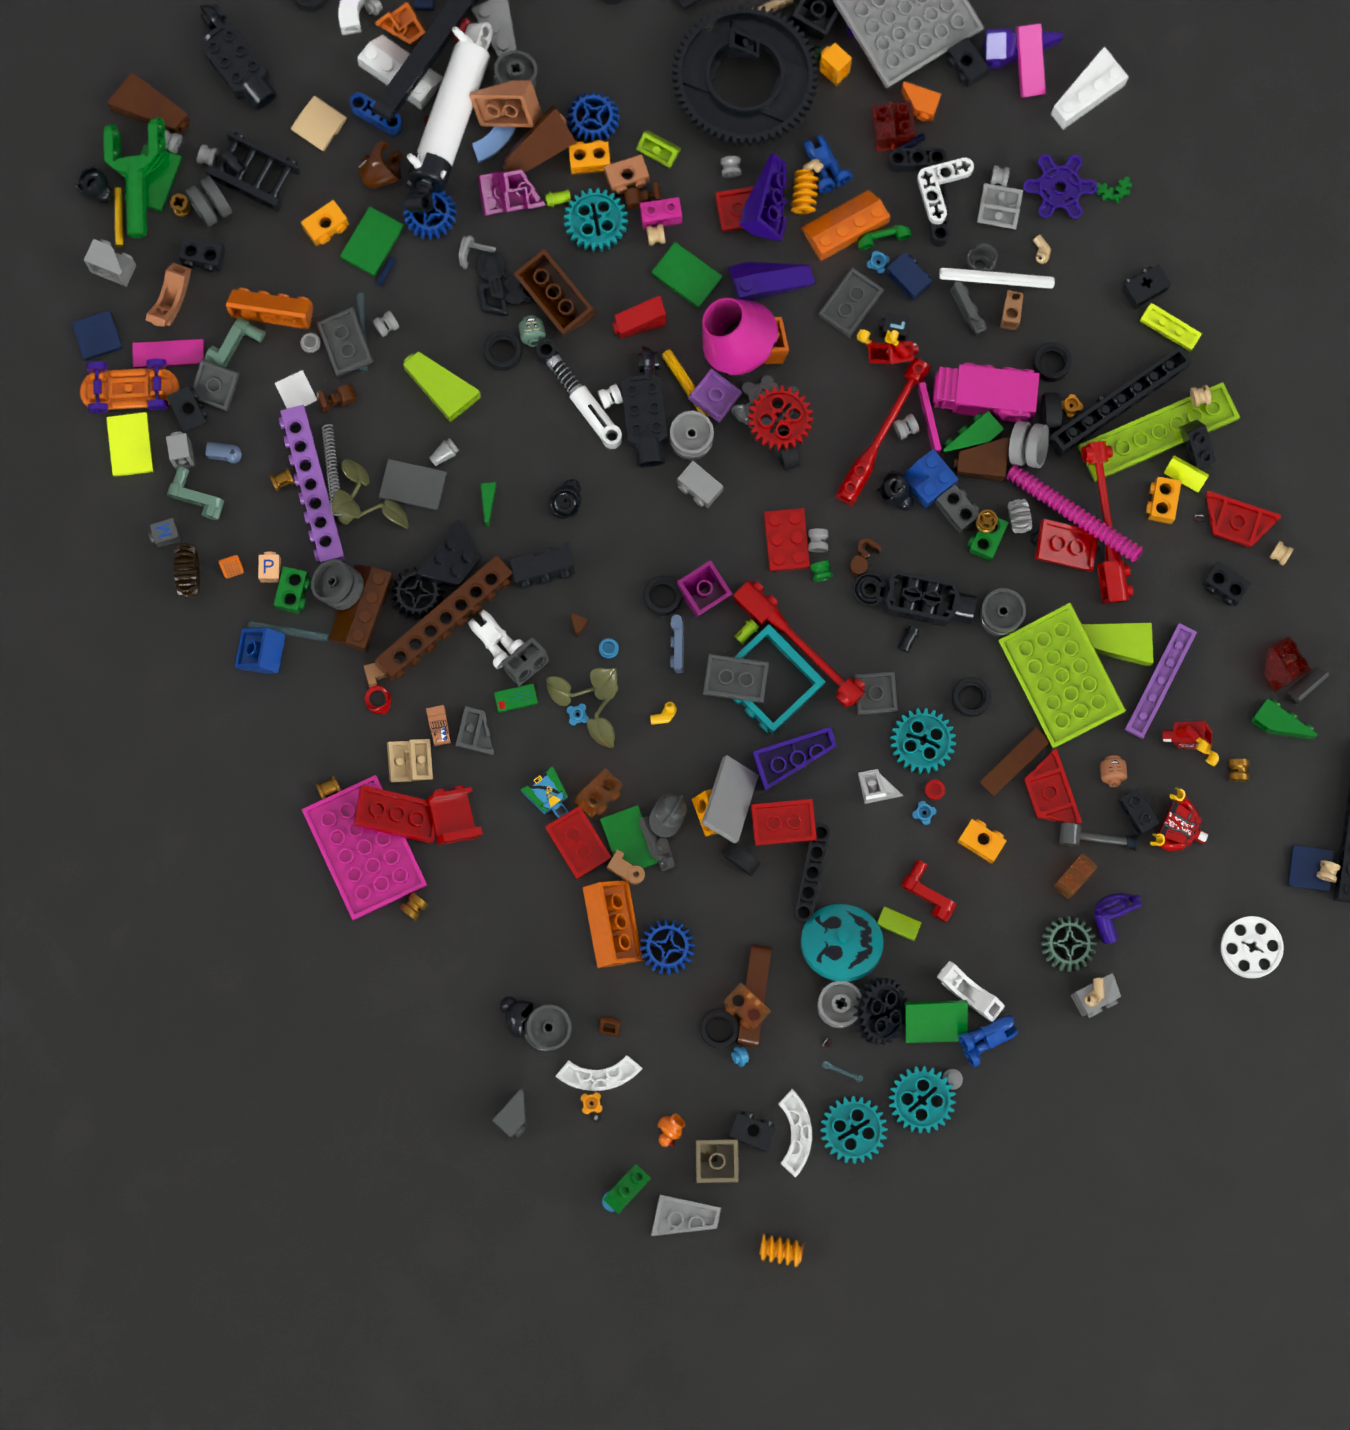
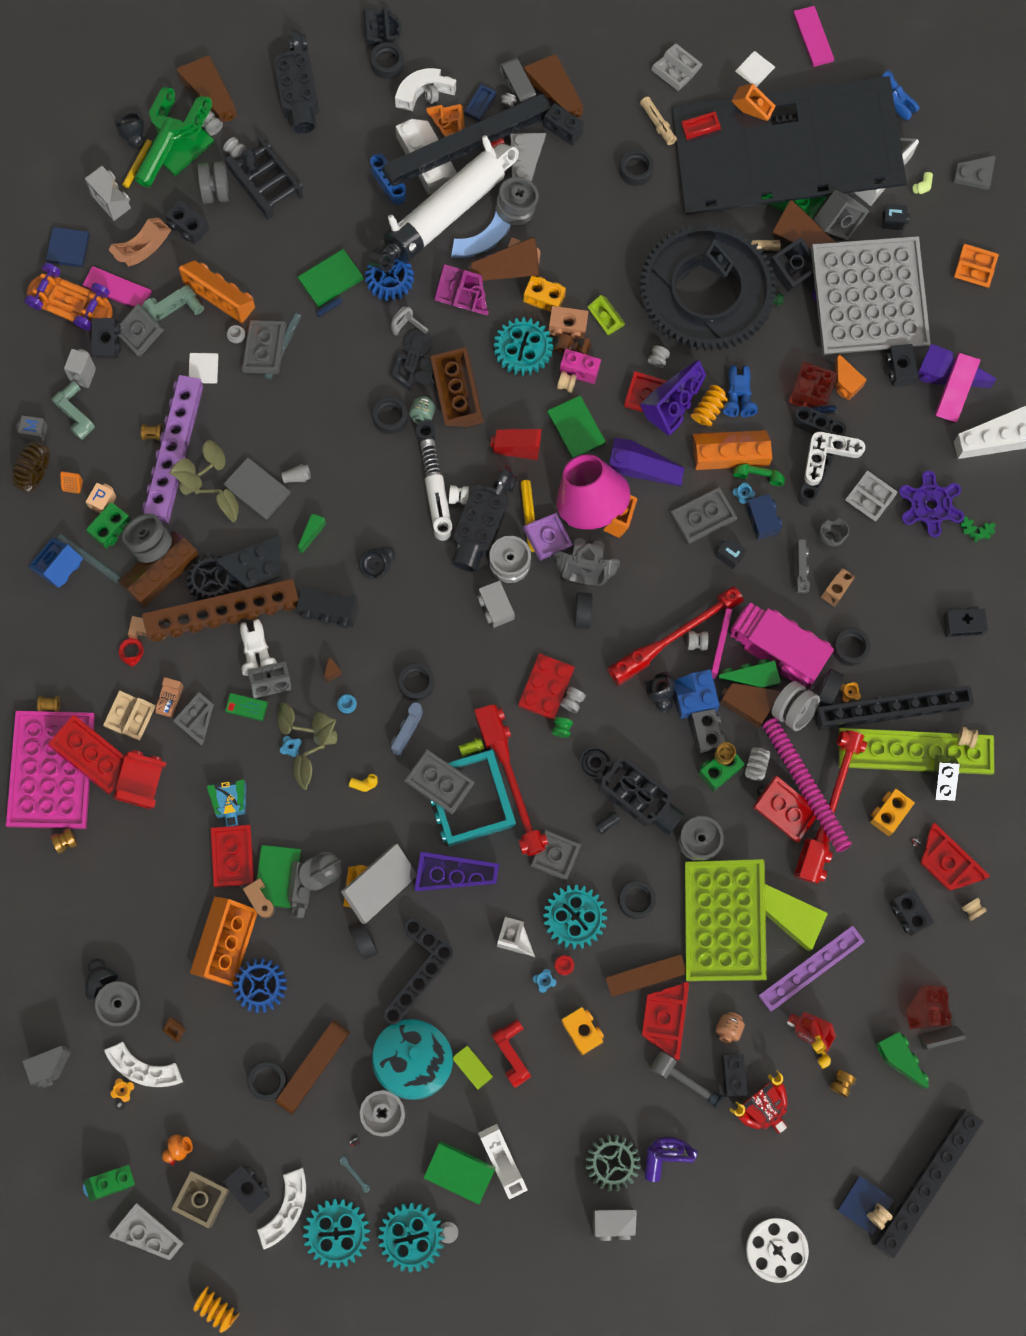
camera: 25 degrees right, 5 degrees down
(130, 444) = (45, 345): neon yellow tile -> none
(180, 211) = (190, 170): pearl gold bush -> none
(223, 452) = (115, 387): sand blue piece -> none
(318, 123) = (338, 165): tan slope -> none
(328, 213) = (303, 237): light orange brick -> none
(333, 476) = (199, 431): light grey piece -> none
(344, 396) = (239, 389): reddish brown leg -> none
(375, 171) = (361, 223): reddish brown piece -> none
(390, 322) = (309, 348): light grey wheel -> none
(442, 387) = (325, 424): lime slope -> none
(507, 104) = (497, 218): nougat slope -> none
(557, 198) = (501, 314): lime pin -> none
(596, 791) = (269, 818): clear orange brick -> none
(604, 106) = (577, 259): blue gear -> none
(703, 588) = (452, 692): magenta slope -> none
(740, 1056) = (271, 1114): dark azure plate -> none
(751, 1002) = (302, 1072): clear orange brick -> none
(765, 409) = (600, 593): red gear -> none
(783, 822) = (415, 927): red plate -> none
(814, 164) = (729, 387): tan arm -> none
(835, 63) = (789, 313): light orange brick -> none
(859, 563) = (597, 736): reddish brown leg -> none
(880, 1011) = (413, 1138): black gear -> none
(889, 351) = (716, 569): red torso -> none
(991, 1036) = (503, 1211): blue piece -> none
(996, 278) = (838, 553): white axle -> none
(1000, 176) = (883, 470): light grey wheel -> none
(1043, 251) = (891, 550): tan arm -> none
(1075, 876) = (649, 1104): clear orange brick -> none
(1097, 994) = (611, 1223): tan arm -> none
(1170, 327) = (970, 667): neon yellow plate -> none
(1186, 473) = (923, 798): neon yellow tile -> none

